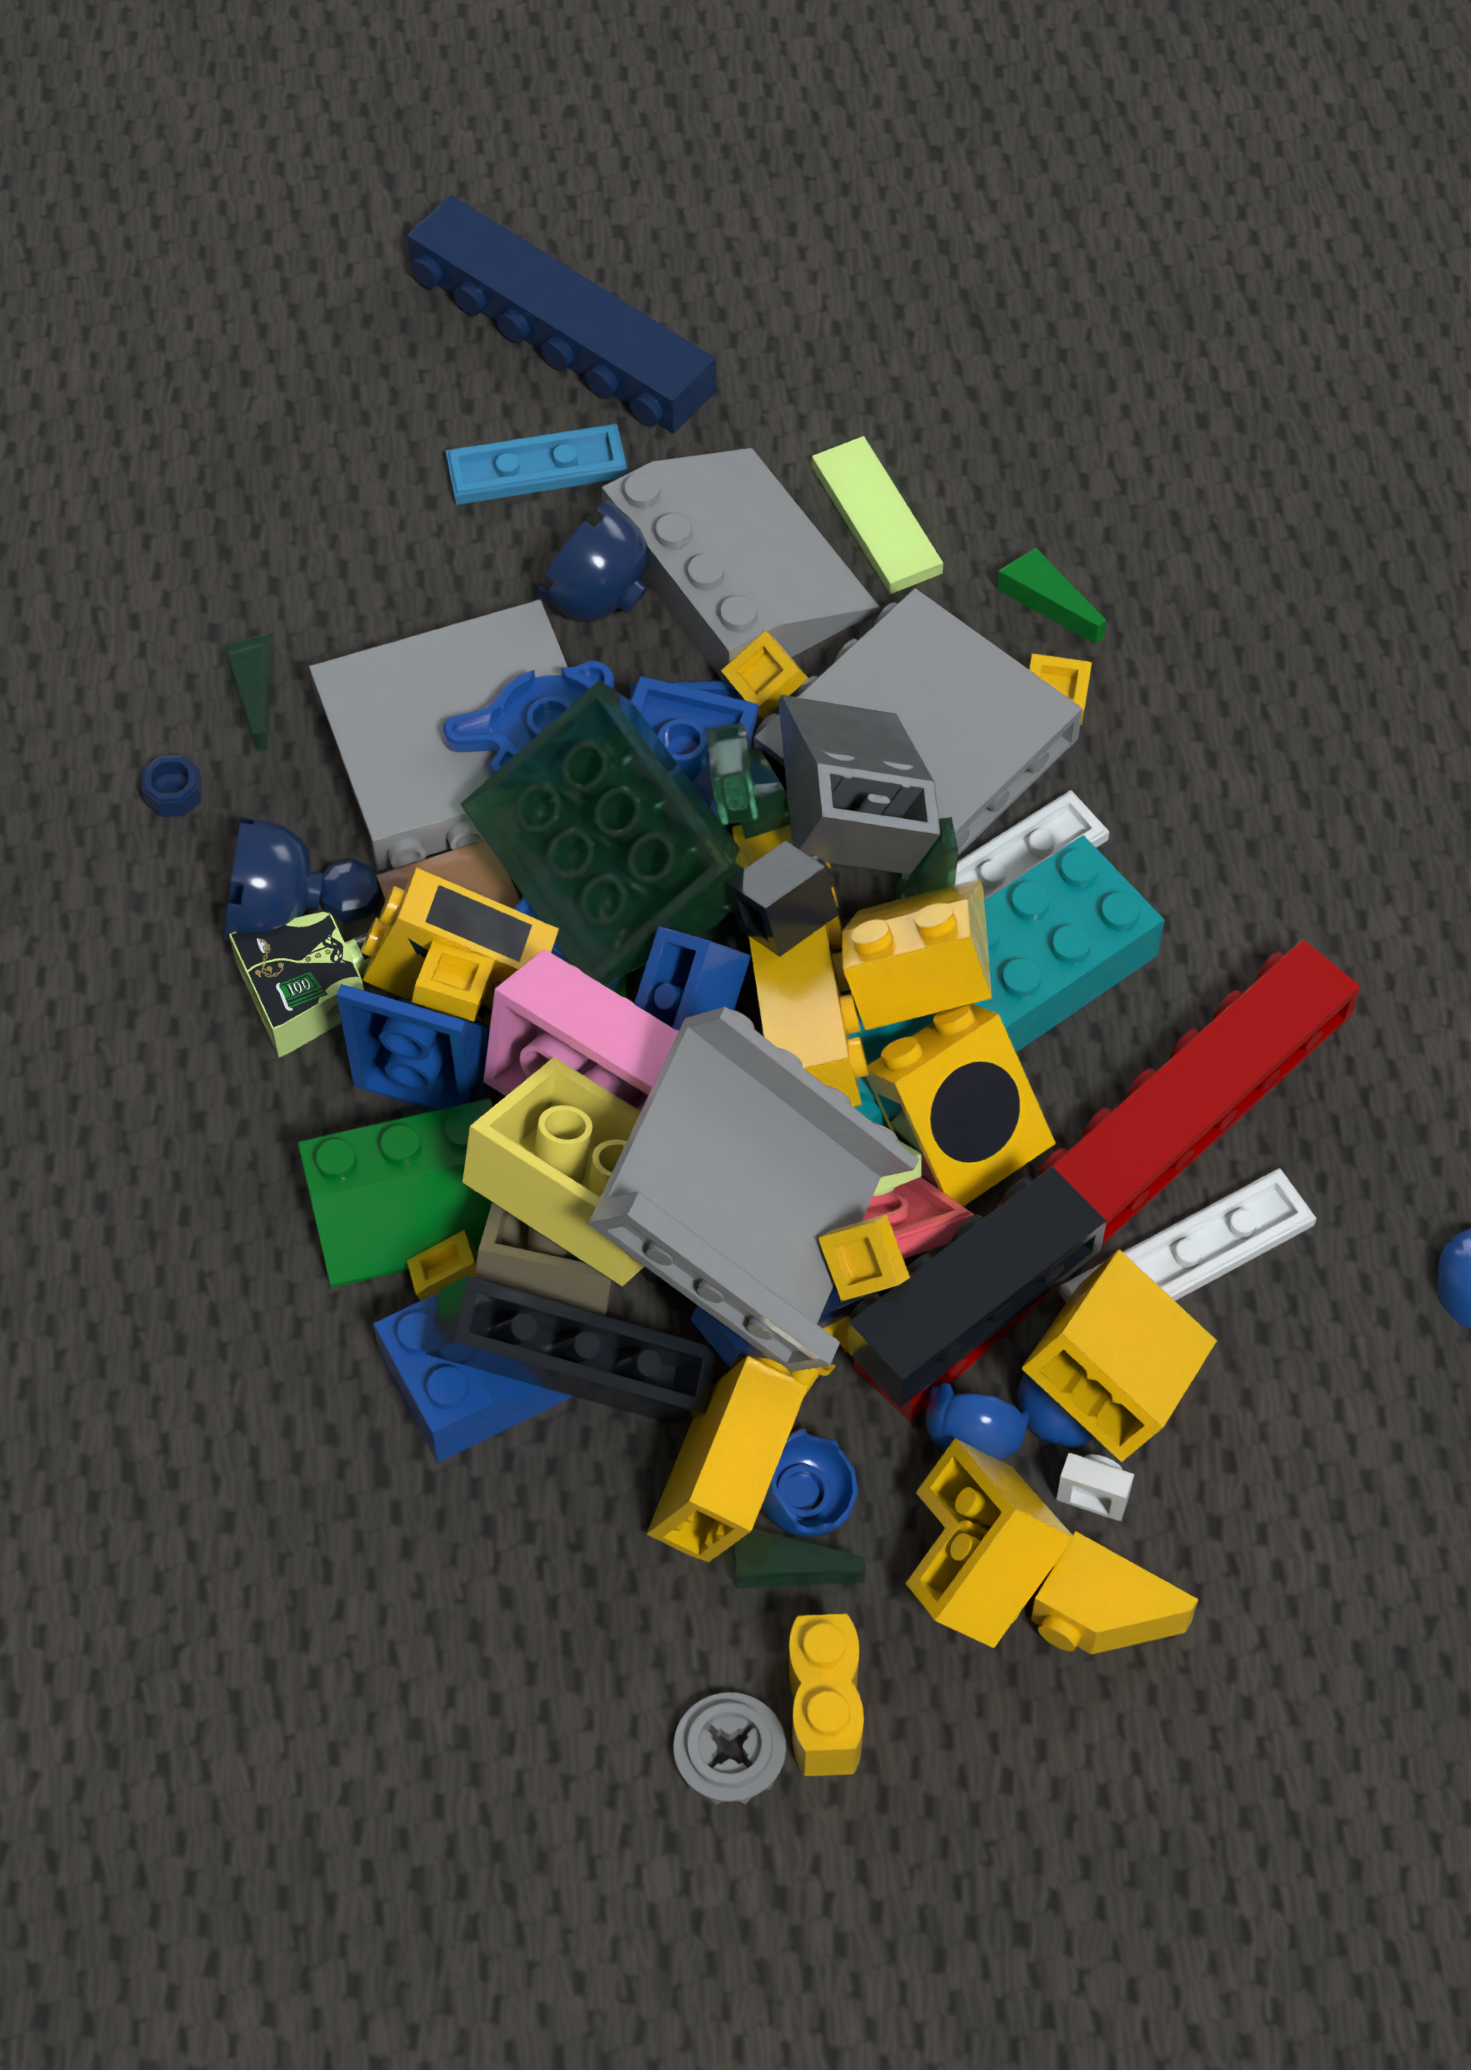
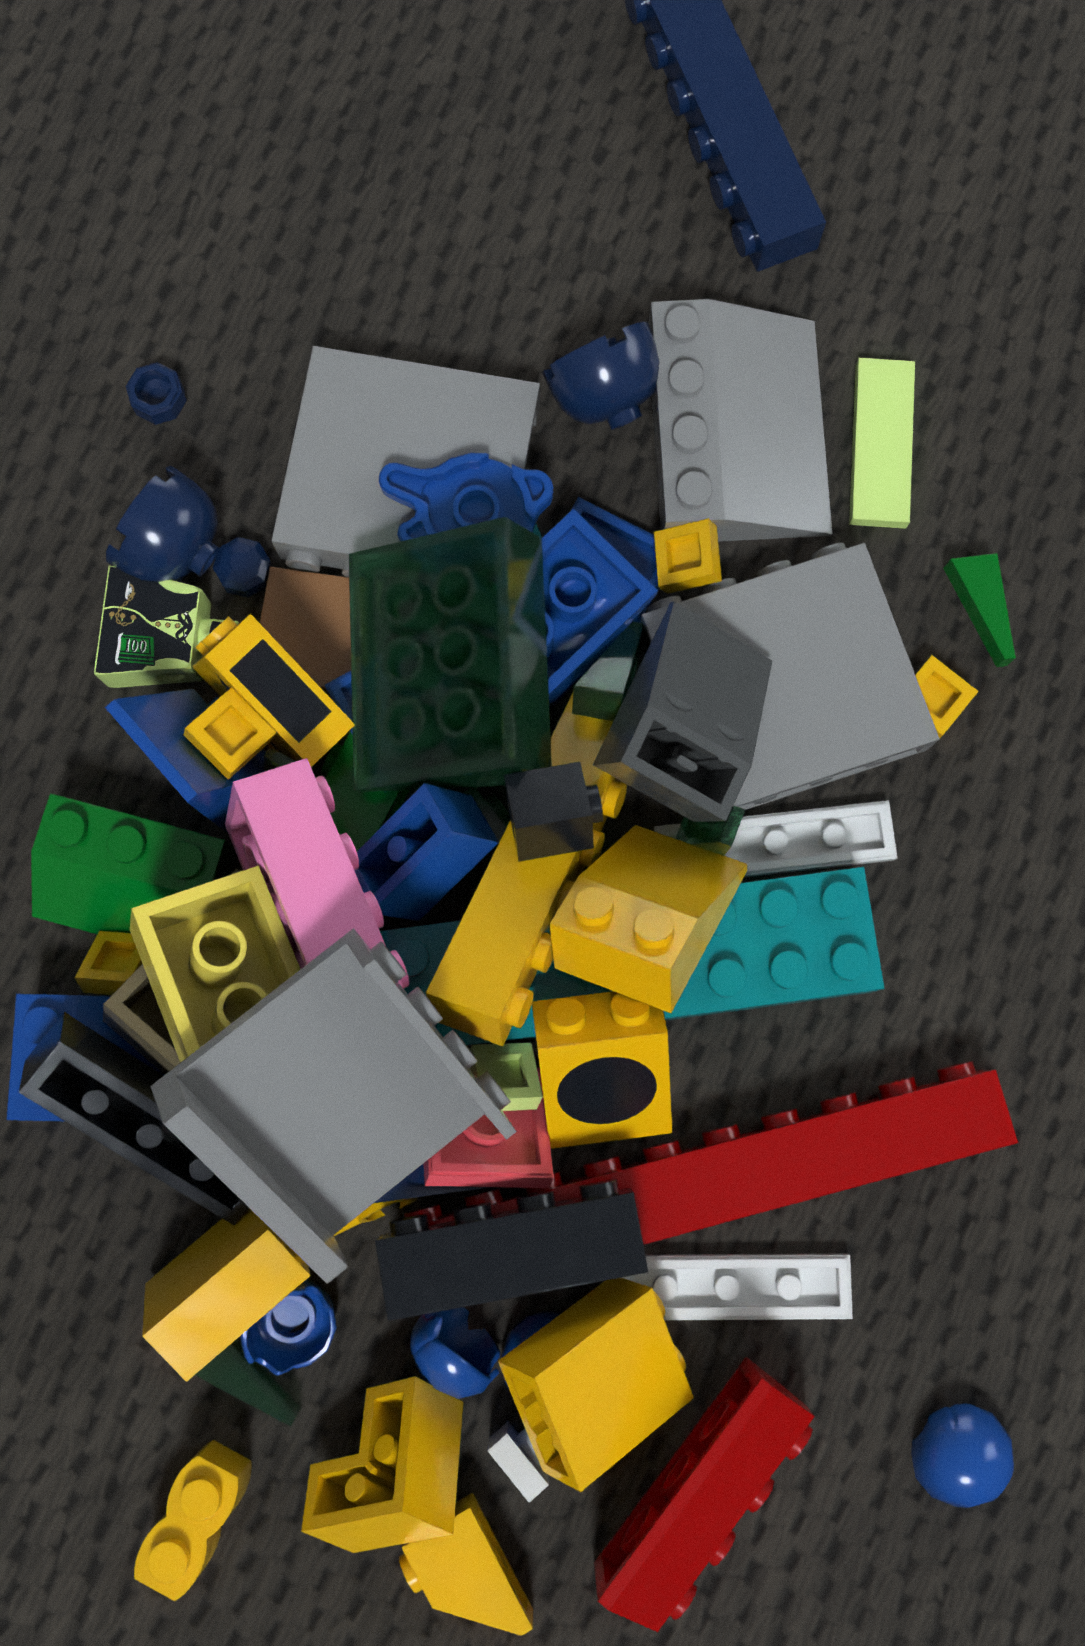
camera: 30 degrees right, 20 degrees up
(253, 672) = (277, 325): clear green piece -> none
(536, 464) = (624, 242): dark azure tile -> none
(729, 1716) = (89, 1533): light grey gear -> none
(732, 774) = (587, 652): clear green piece -> none
(864, 1257) = (419, 1193): yellow plate -> none
(1279, 1415) = (701, 1497): none -> red slope

